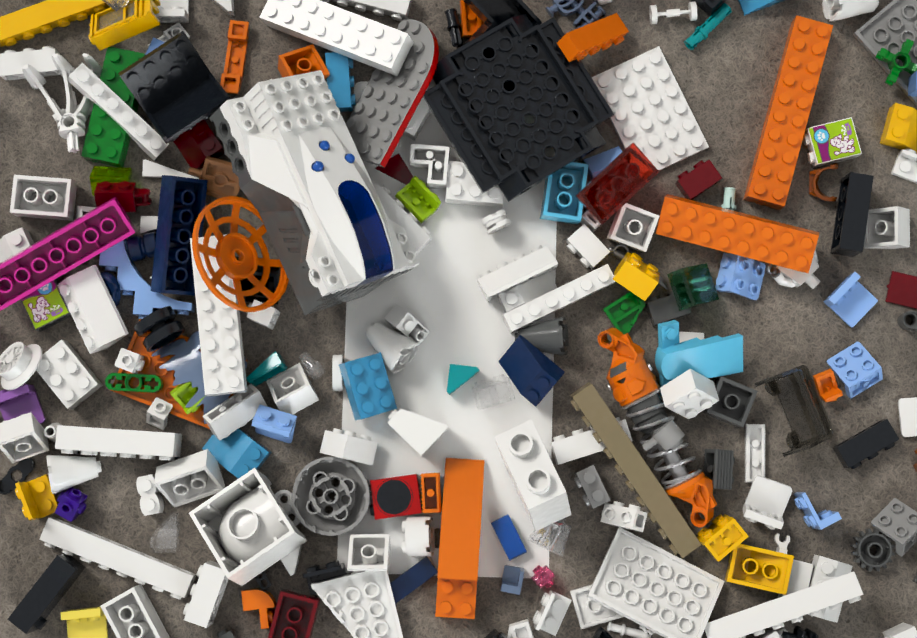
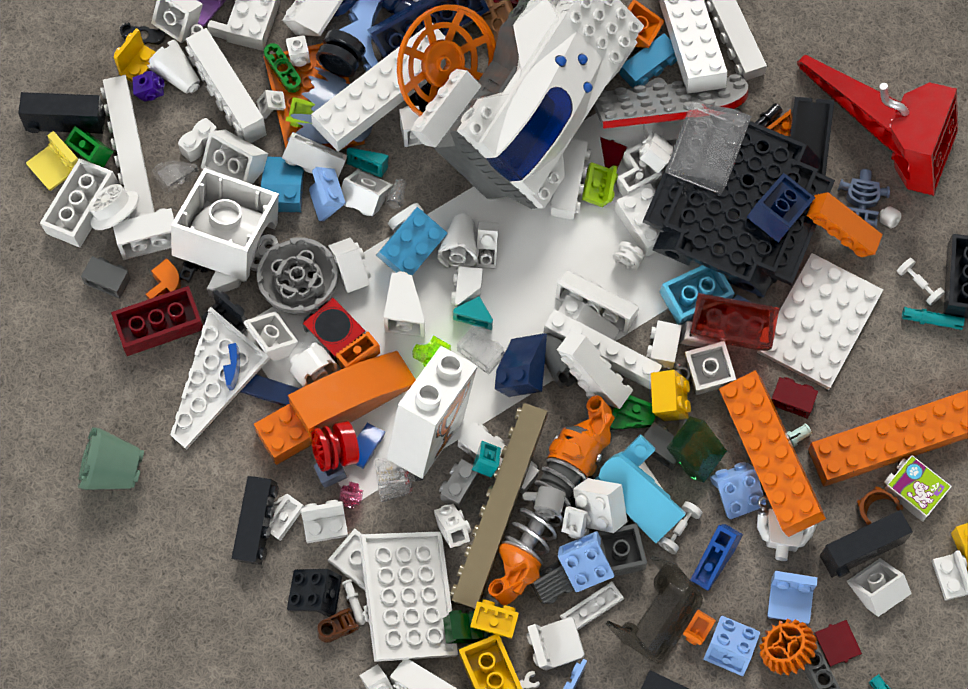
camera: 50 degrees right, 15 degrees down
(57, 411) = (217, 29): none -> white tile
(94, 590) = (88, 147): none -> green brick
(168, 609) = (111, 206): none -> white wheel
(277, 281) = (445, 107): none -> white brick
(381, 606) = (232, 370): none -> blue slope
(430, 138) = (655, 151): none -> white brick
(431, 364) = (468, 285): none -> white slope
(462, 96) = (708, 145): none -> clear slope
(470, 432) = (425, 352): none -> clear neon green brick
(502, 567) = (335, 446): none -> red wheel
(552, 78) = (780, 207): none -> dark blue slope
(581, 322) = (593, 370): none -> white wedge
(592, 453) = (487, 459): none -> teal slope
(690, 423) = (575, 522): none -> white bracket
(706, 566) = (458, 628): none -> dark green brick
(723, 437) = (585, 562): none -> light blue bracket
(734, 323) = (669, 544): none -> white wheel
(781, 331) = (716, 556): none -> blue slope
(882, 329) = (784, 644): none -> orange gear

